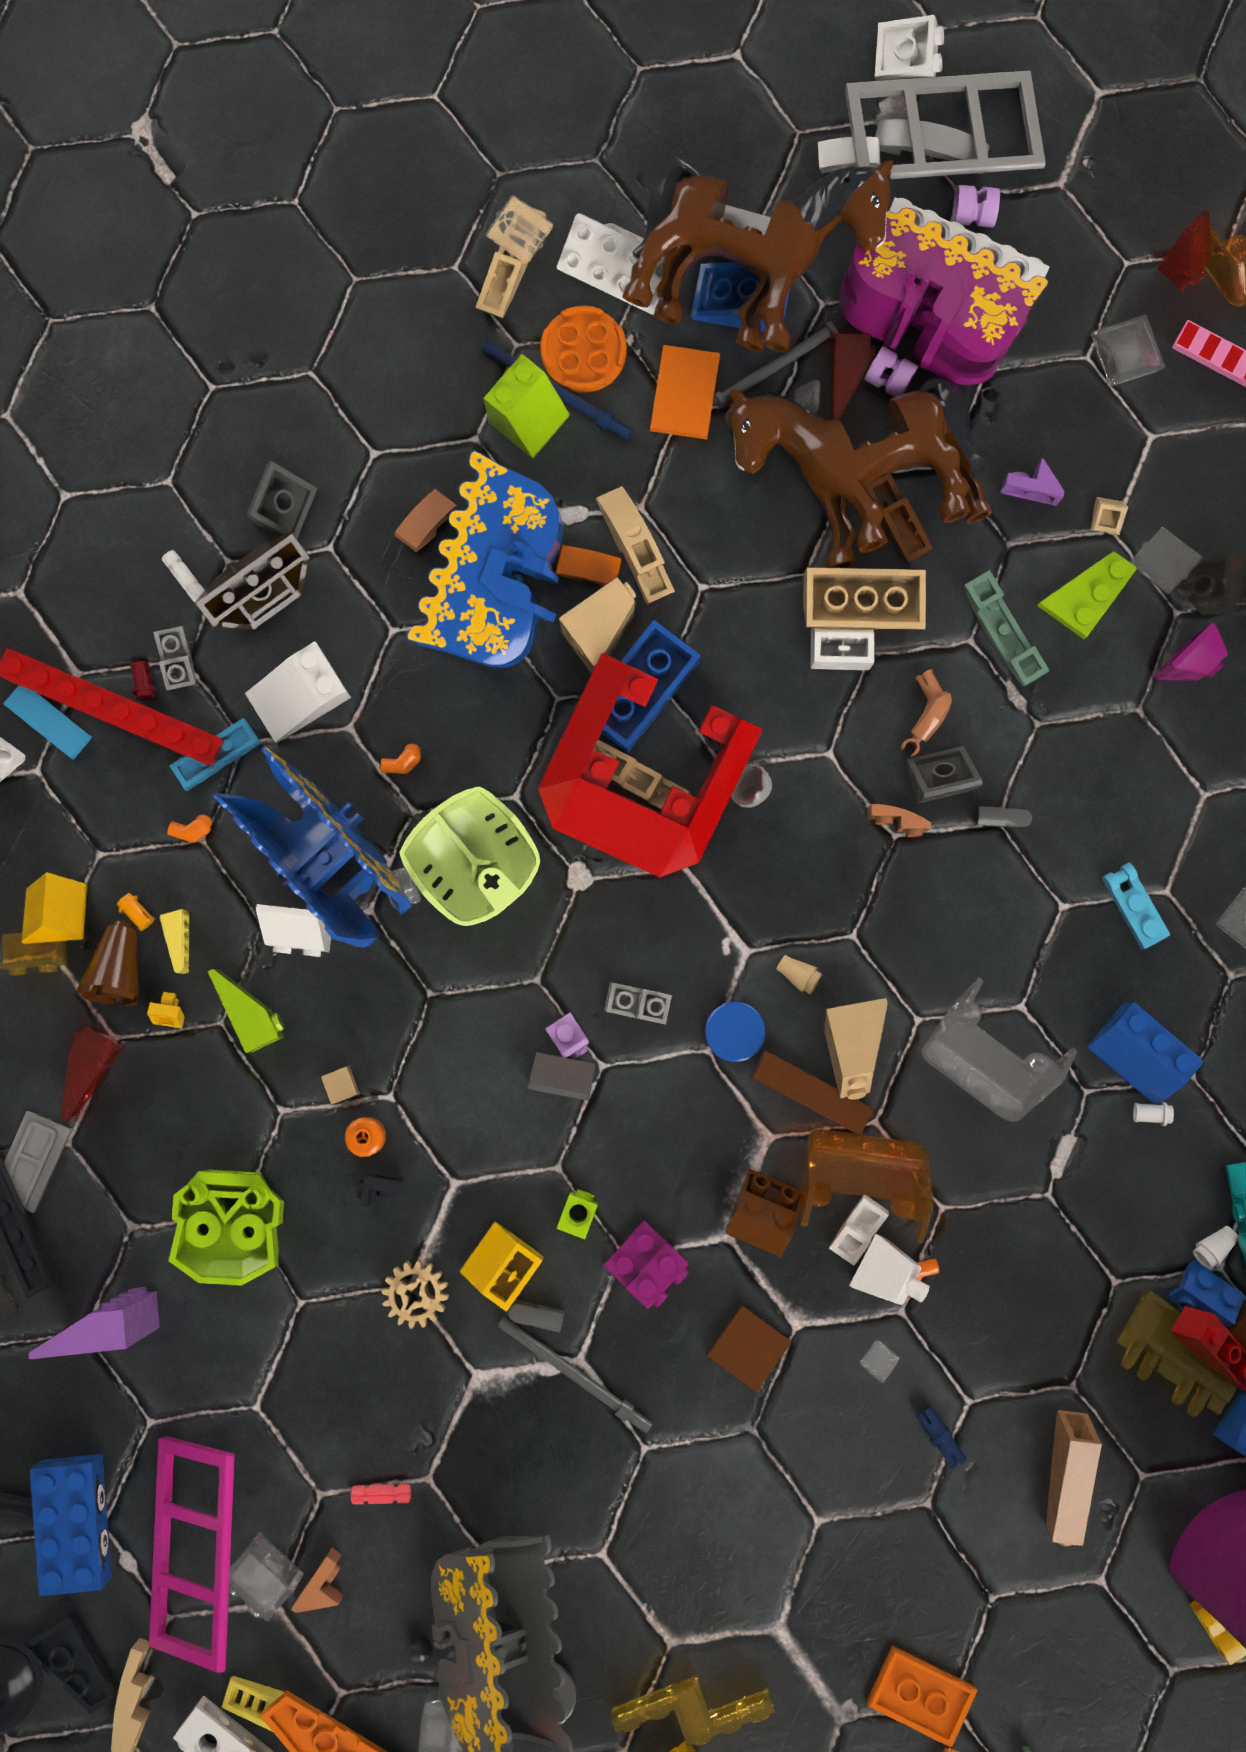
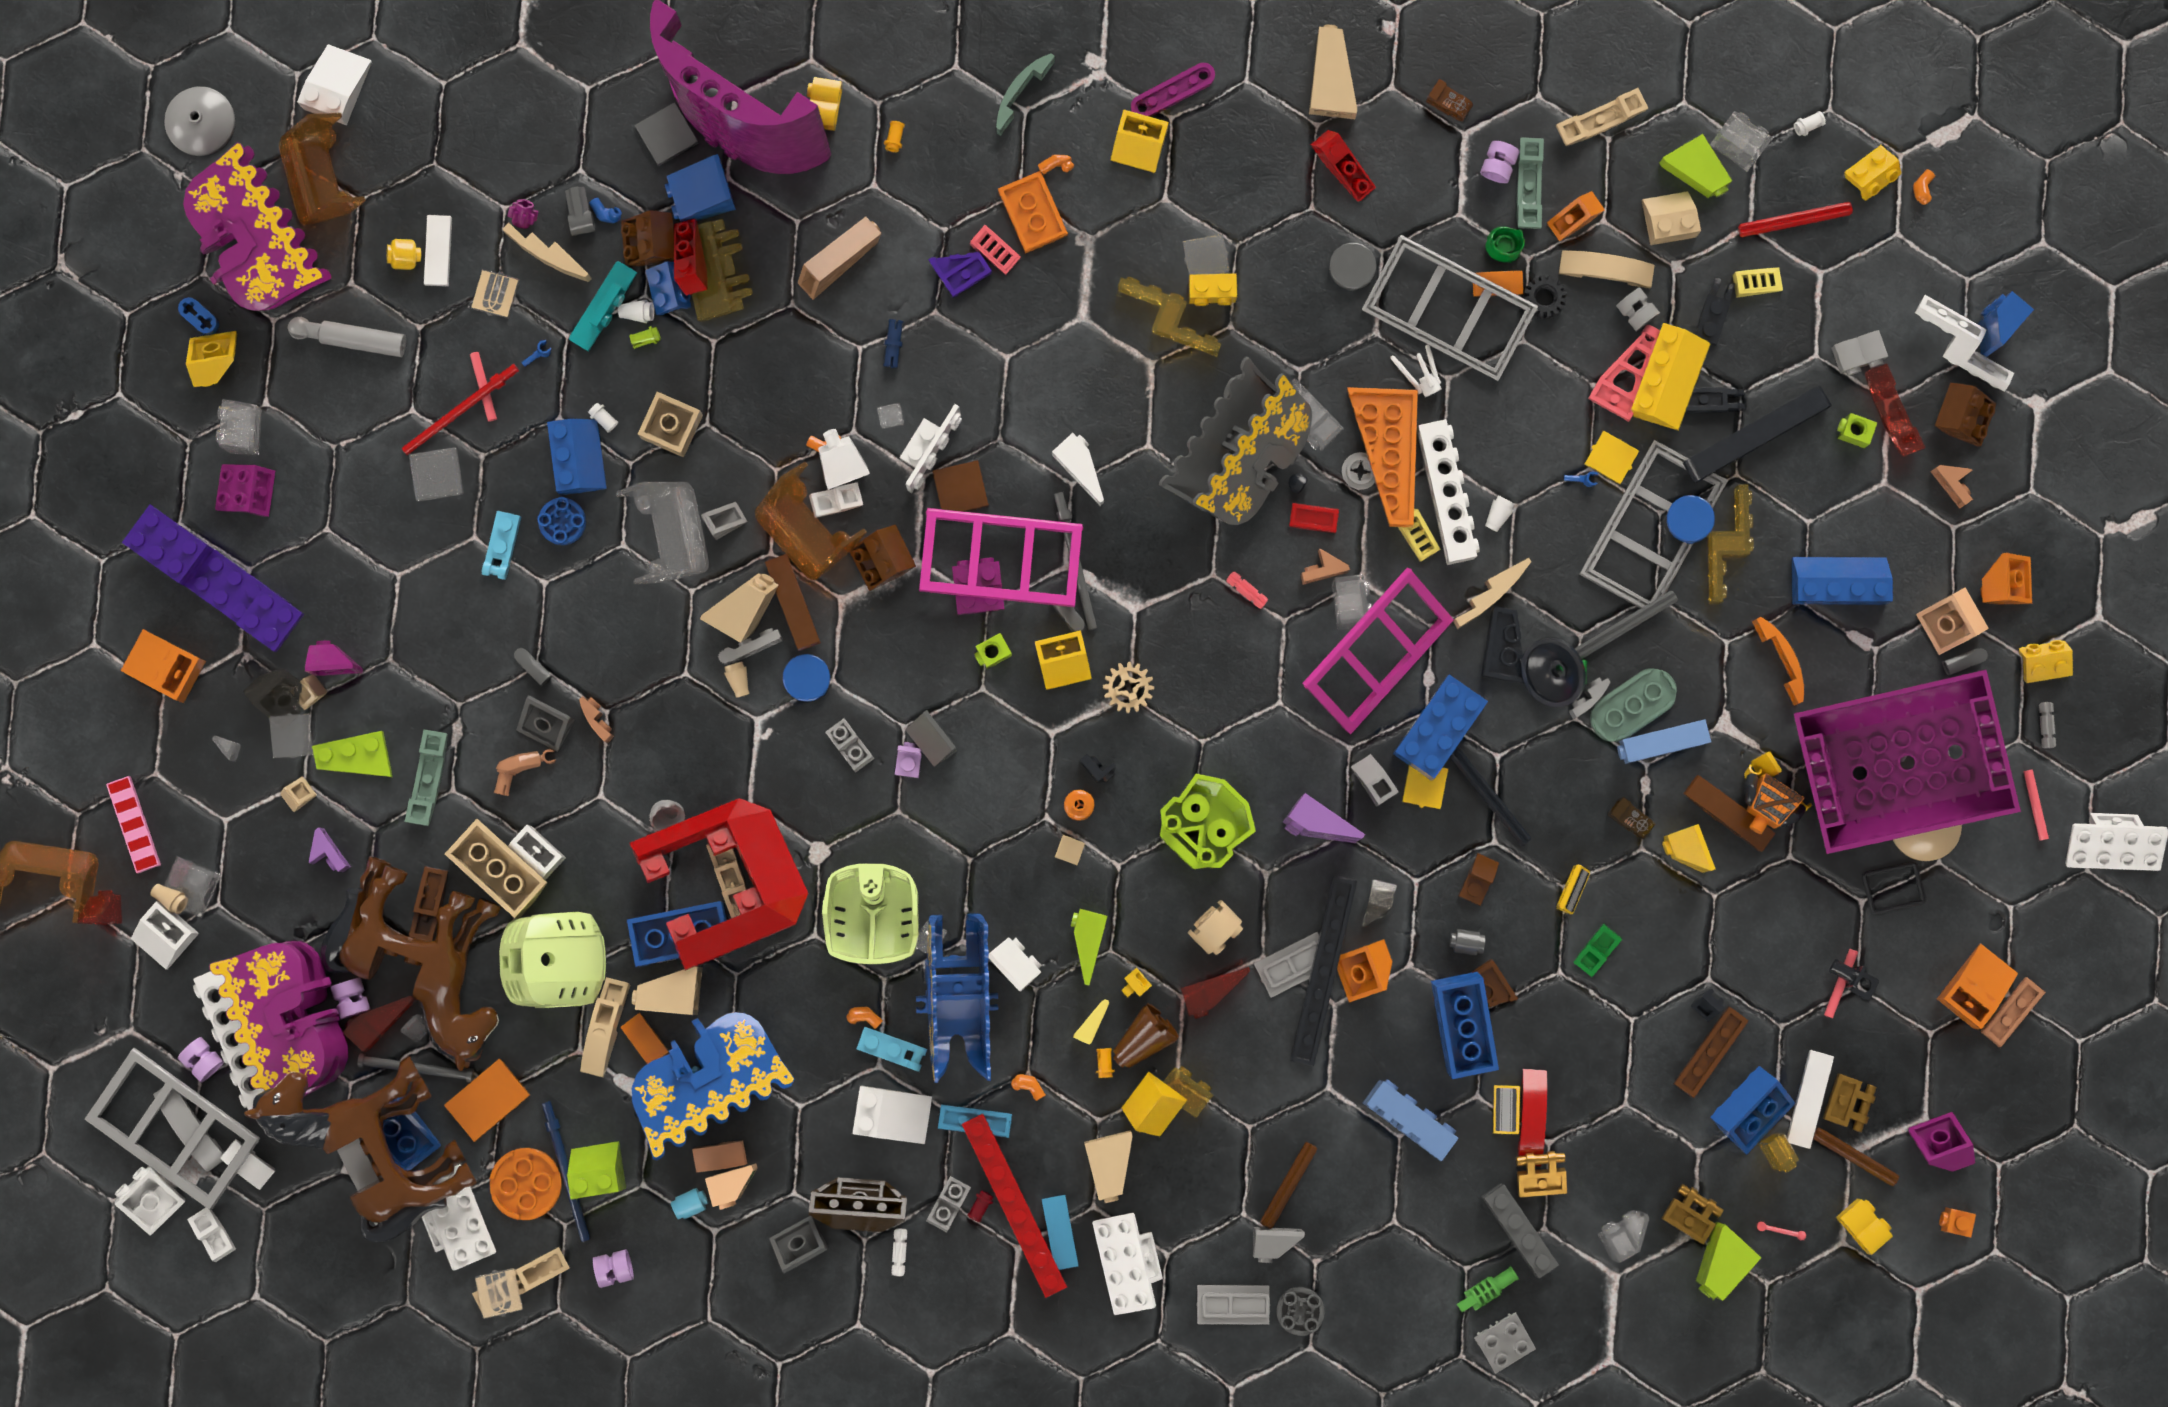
camera: 140 degrees left, 0 degrees up
(42, 1442) = (1423, 791): none -> yellow piece
(46, 822) = (1109, 1163): none -> tan slope
(92, 1413) = (1374, 780): none -> light grey slope
(129, 1132) = (1215, 928): none -> tan brick
(351, 753) = (890, 1048): none -> medium azure plate
(371, 1703) = (1351, 478): none -> light grey gear
(375, 1627) = (1314, 518): none -> red tile
(392, 498) = (729, 1186): none -> light nougat slope
(416, 455) = (689, 1203): none -> medium azure brick
(434, 340) = (613, 1268): none -> lavender wheel
(594, 1296) = (996, 593): none -> dark pink door
(655, 1477) = (1078, 463): none -> white slope
(717, 577) = (574, 956): none -> yellowish green piece
(815, 1012) = (749, 647): none -> light grey hinge
(821, 1360) = (925, 444): none -> white bracket
(824, 72) = (212, 1234): none -> white slope
(938, 1635) = (999, 244): none -> coral slope
(939, 1570) = (960, 271): none -> dark purple wing
(949, 1115) = (724, 519): none -> light grey slope
(1084, 1163) = (670, 424): none -> tan brick
(1100, 979) = (562, 521): none -> blue tile
(1112, 287) = (163, 935): none -> white slope
(1122, 1645) = (894, 136): none -> light orange pin
(1137, 317) = (171, 899): none -> tan cone
(1184, 617) = (311, 691): none -> tan slope
(1184, 1228) = (645, 337): none -> lime pin
(1212, 499) = (228, 748): none -> clear slope

